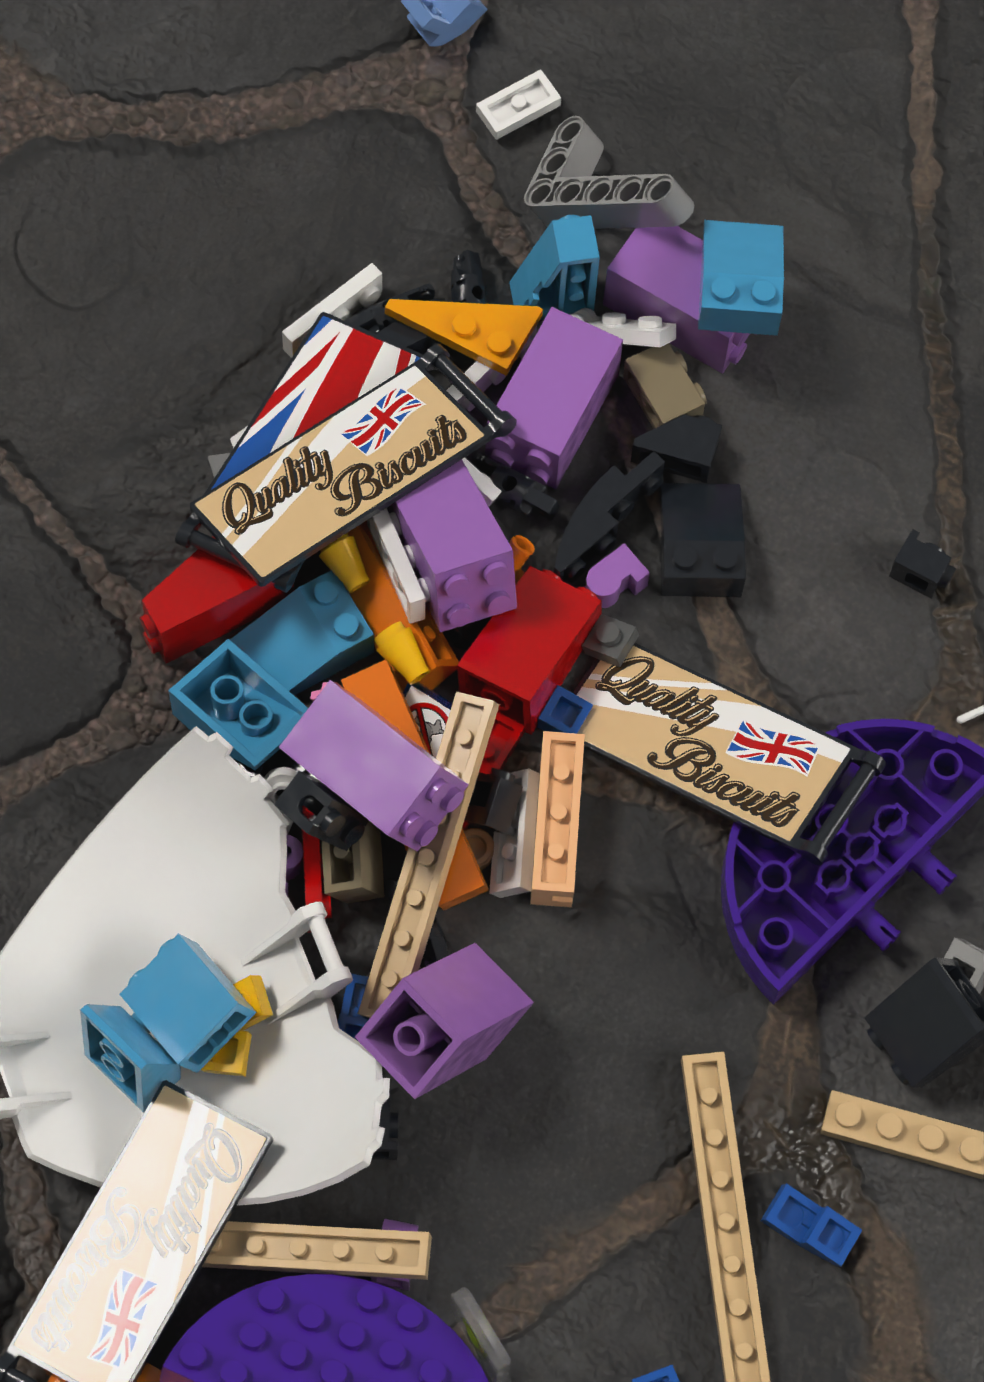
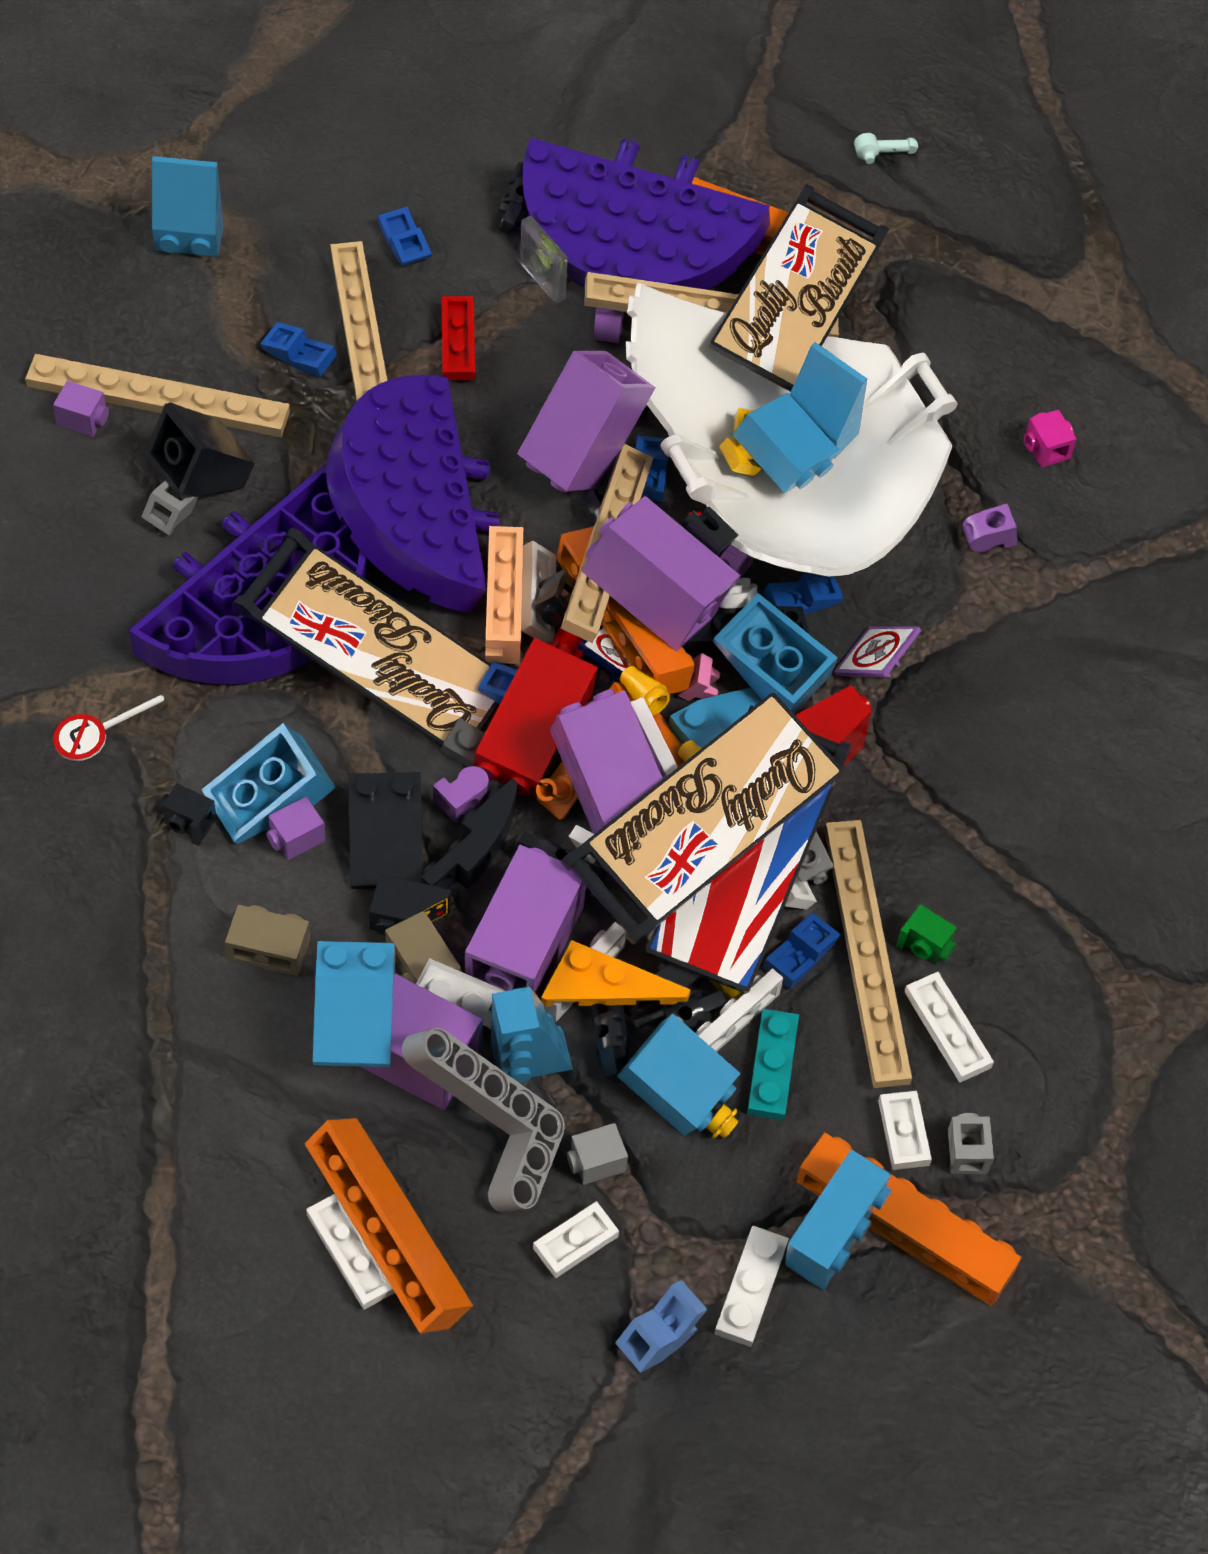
camera: 175 degrees right, 10 degrees down
(110, 168) = (975, 1157): none -> light grey brick
(110, 292) = (948, 1027): none -> white plate
(114, 727) = (877, 651): none -> piece
(115, 387) = (928, 936): none -> green brick
(174, 190) = (904, 1130): none -> white plate
(183, 374) = (867, 955): none -> tan plate
(187, 103) = (923, 1227): none -> orange brick
(246, 390) = (802, 950): none -> blue slope
(263, 71) = (837, 1219): none -> dark azure wedge
(300, 268) = (773, 1064): none -> teal plate
(349, 60) = (751, 1286): none -> white plate
(361, 209) = (723, 1122): none -> yellow plate
(404, 241) = (680, 1076): none -> dark azure brick
(491, 179) = (597, 1154): none -> light grey brick
(599, 1231) = (458, 338): none -> red plate
(678, 964) = (406, 491): none -> dark purple brick
(703, 117) = (388, 1225): none -> orange brick
(738, 107) = (349, 1252): none -> white plate
(801, 541) = (296, 828): none -> medium lavender brick
(828, 417) = (267, 939): none -> dark tan brick
(831, 595) = (266, 780): none -> dark azure slope

